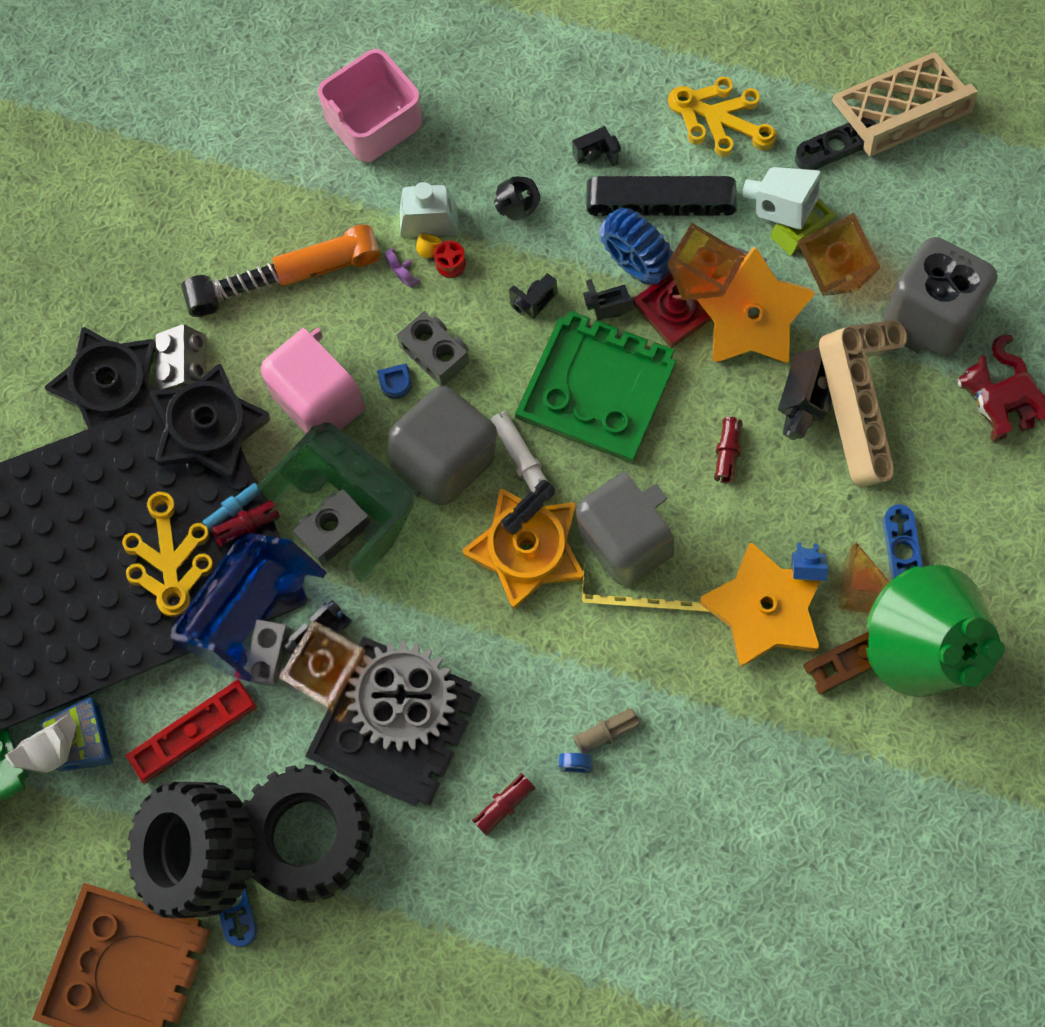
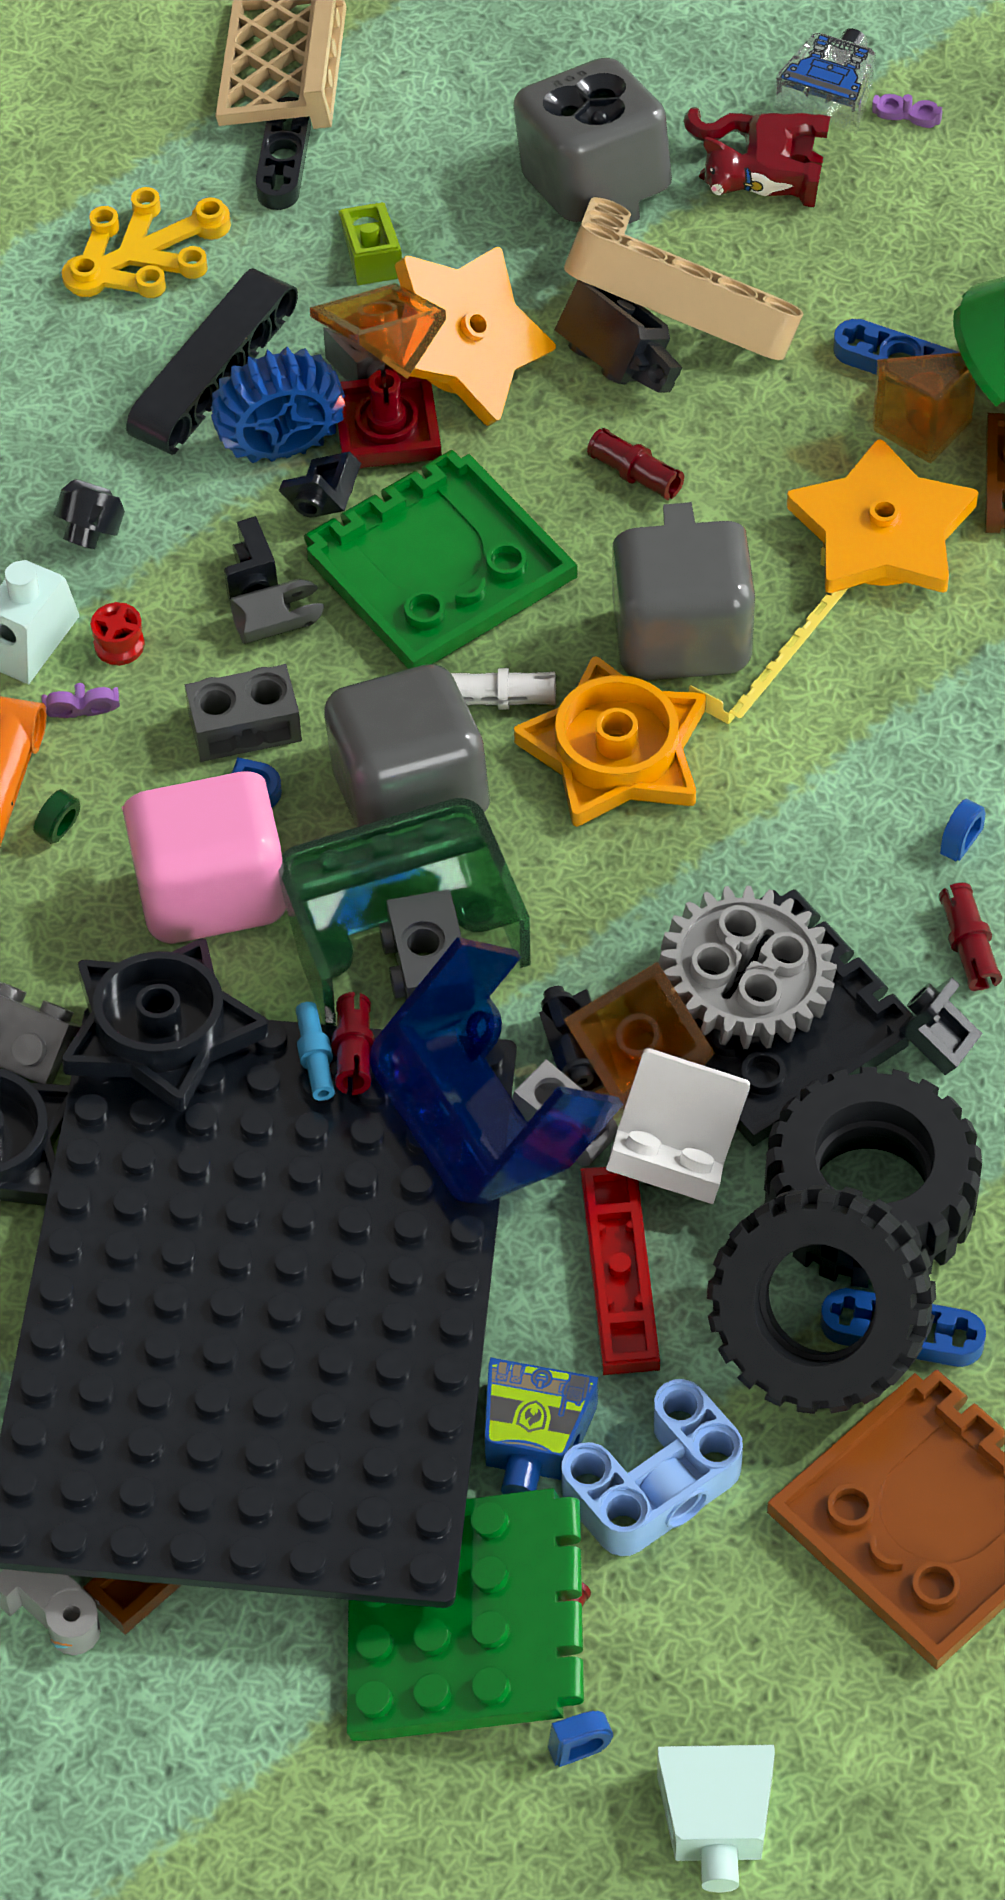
camera: 65 degrees left, 15 degrees down
(46, 748) = (540, 1425): white piece -> none
(73, 827) = (666, 1486): none -> light blue beam
(168, 560) = (339, 1161): yellow plant -> none
(273, 716) = (678, 1125): none -> white bracket
(317, 300) = (56, 816): none -> dark green tile
(426, 245) = (76, 651): yellow hinge -> none
(427, 819) = (939, 1026): none -> black bracket
(509, 324) = (267, 614): none -> dark grey piece
(528, 507) = (574, 693): black axle -> none
(592, 145) = (80, 387): black bracket -> none
(606, 731) = (939, 777): dark tan axle -> none
(785, 195) = (324, 226): light aqua torso -> none
(809, 563) = (858, 444): blue plate -> none
(840, 257) = (455, 209): clear orange slope -> none

